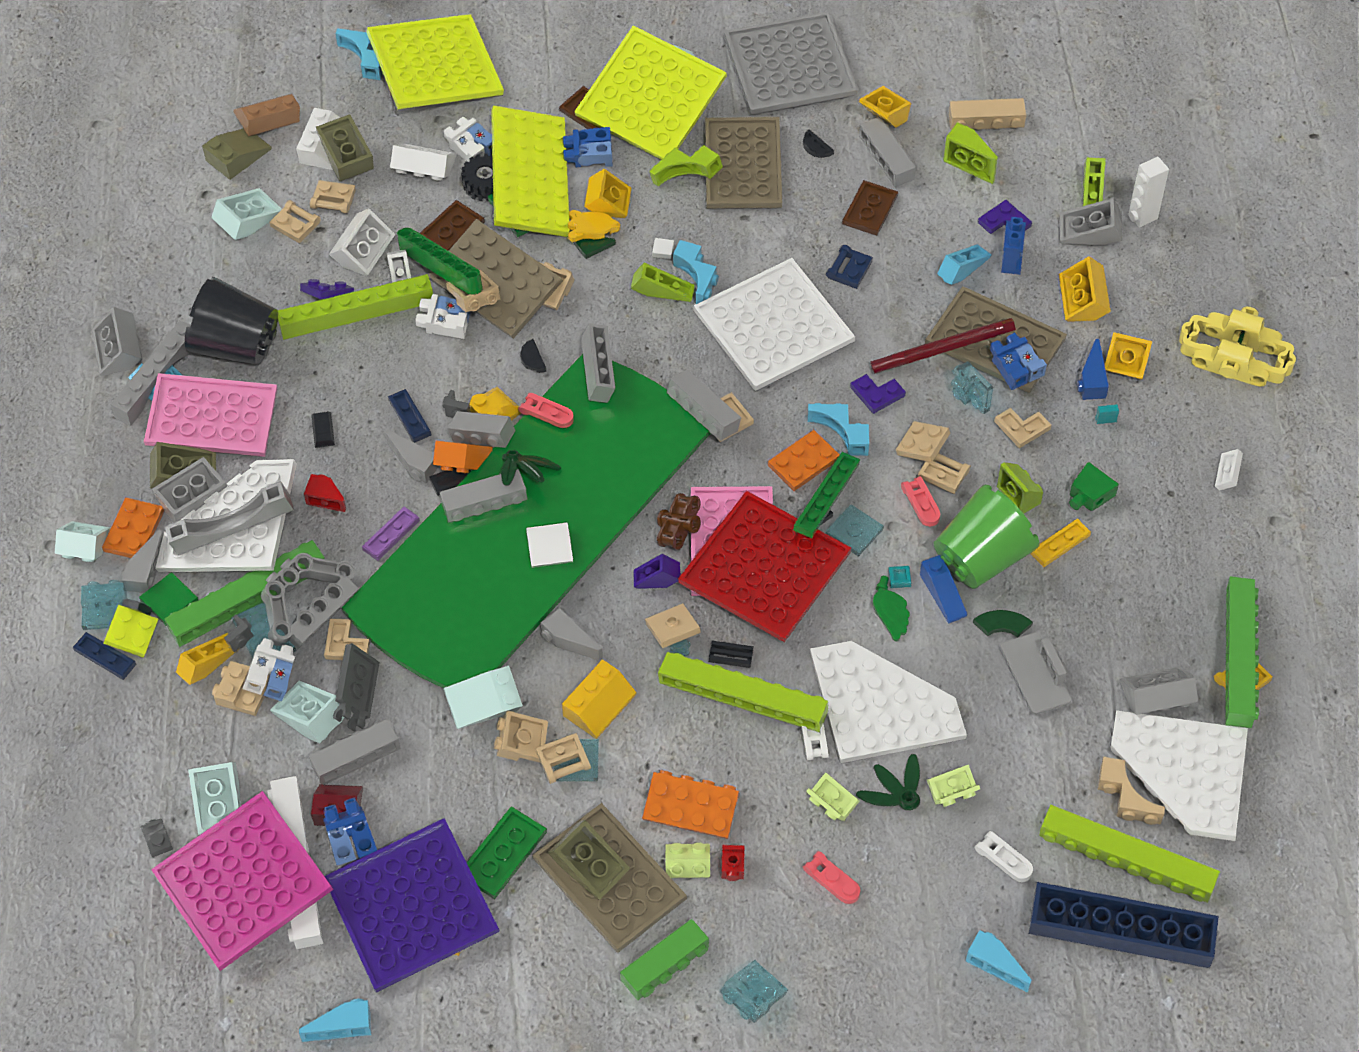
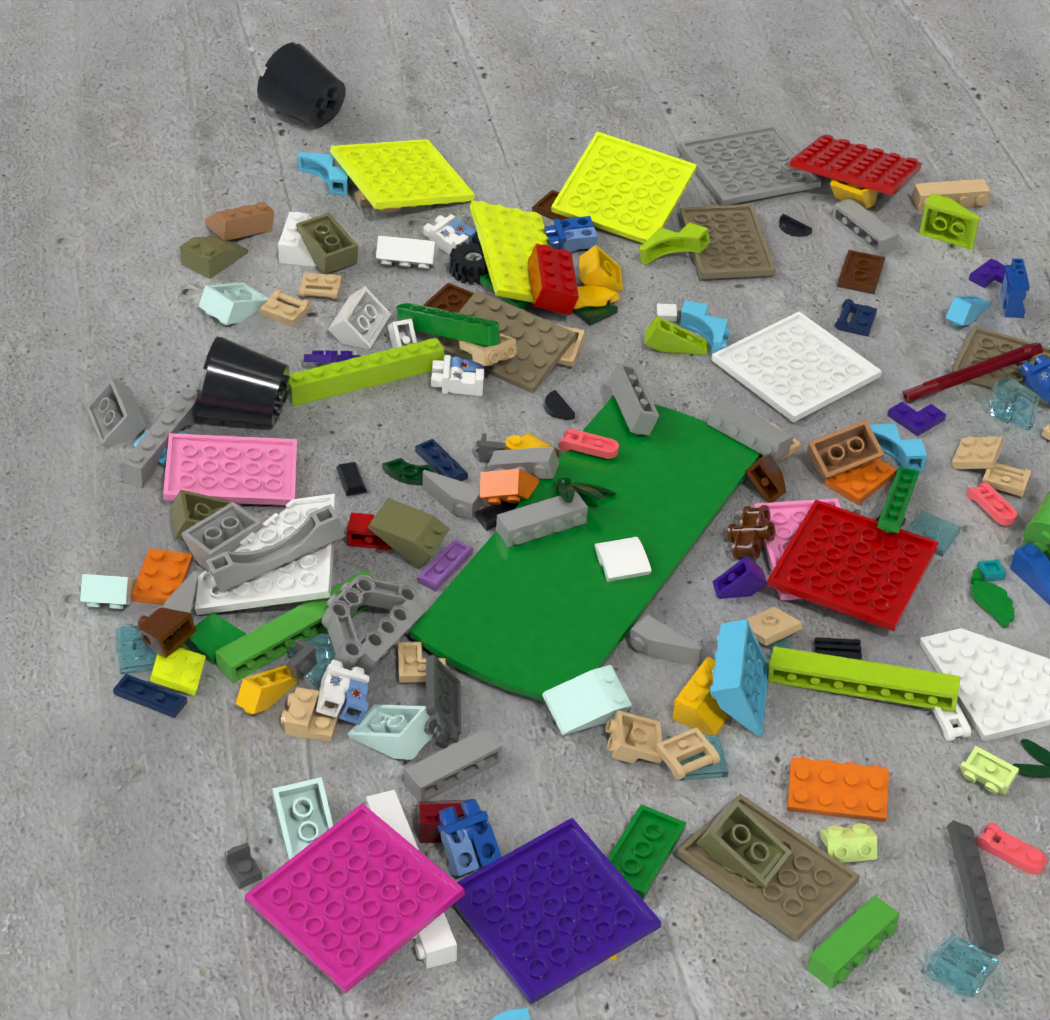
camera: 10 degrees left, 15 degrees down
(121, 596) = (166, 630): none -> reddish brown torso
(358, 499) = (408, 531): none -> olive slope
(376, 426) = (405, 472): none -> dark green tile
(553, 209) = (553, 279): none -> red brick
(627, 684) = (740, 675): none -> medium azure slope
(710, 459) = (767, 478): none -> reddish brown slope
(733, 862) = (900, 840): red brick -> none
(787, 915) = (975, 888): none -> dark grey plate
(790, 434) = (844, 449): none -> medium nougat slope
(896, 73) = (856, 164): none -> red plate

